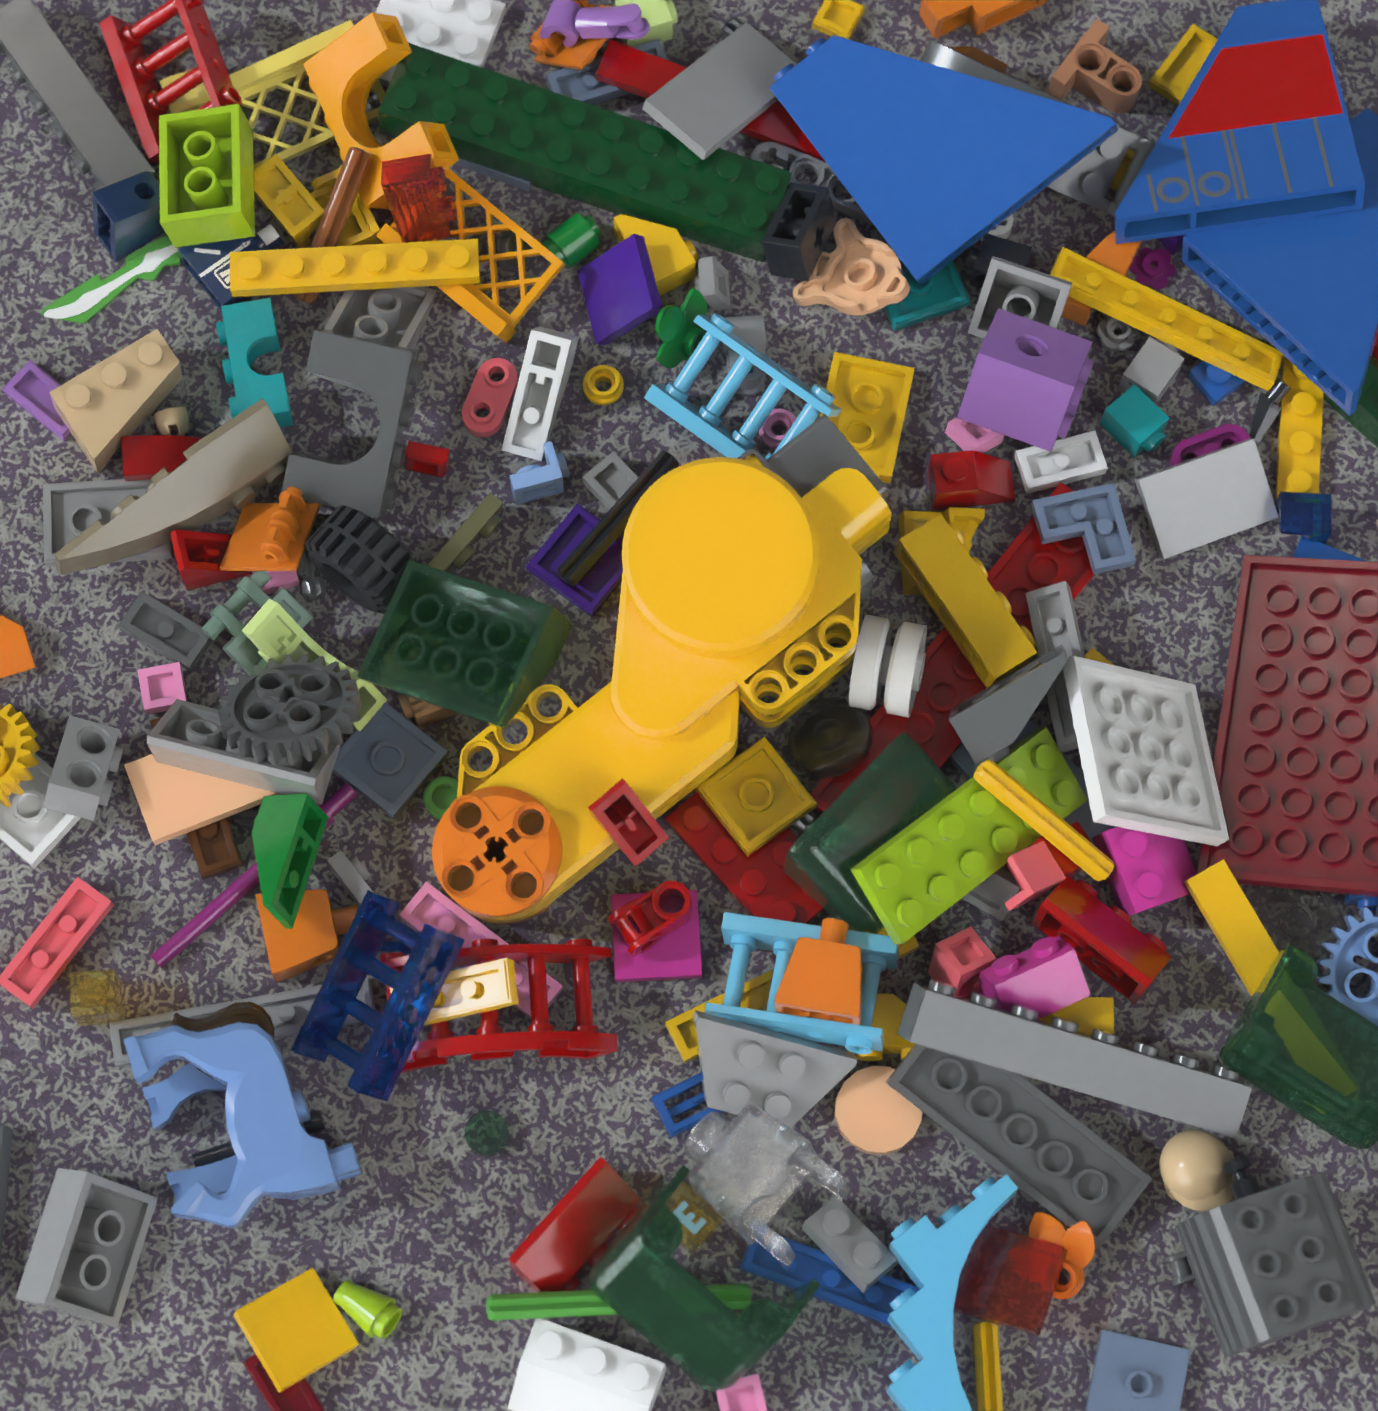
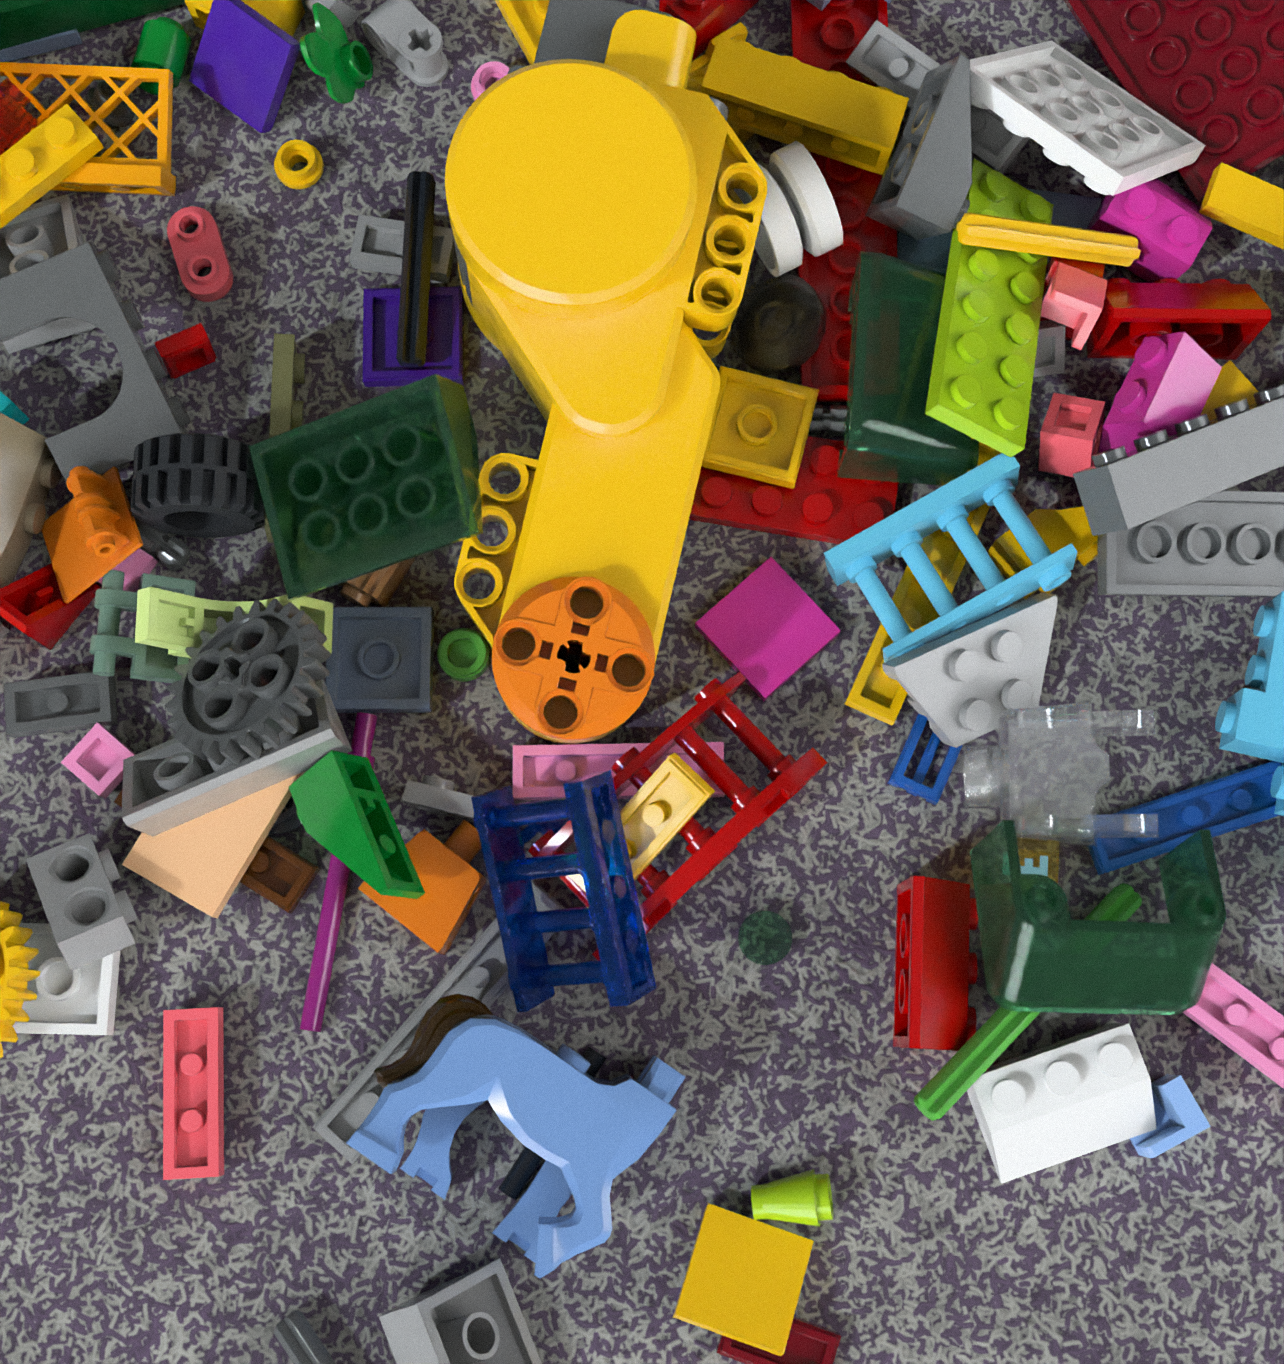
camera: 35 degrees left, 5 degrees up
(96, 997) = (279, 1114): clear yellow brick -> none
(539, 391) = (243, 212): white slope -> none
(539, 482) = (312, 293): light blue bracket -> none
(628, 822) = (684, 527): red slope -> none
(650, 918) = (754, 618): red piece -> none
(706, 420) = (423, 121): medium azure fence -> none
(823, 977) = (979, 537): orange torso -> none
(849, 1244) = (1183, 771): light grey plate -> none
(874, 1113) = (1100, 632): light nougat tile -> none

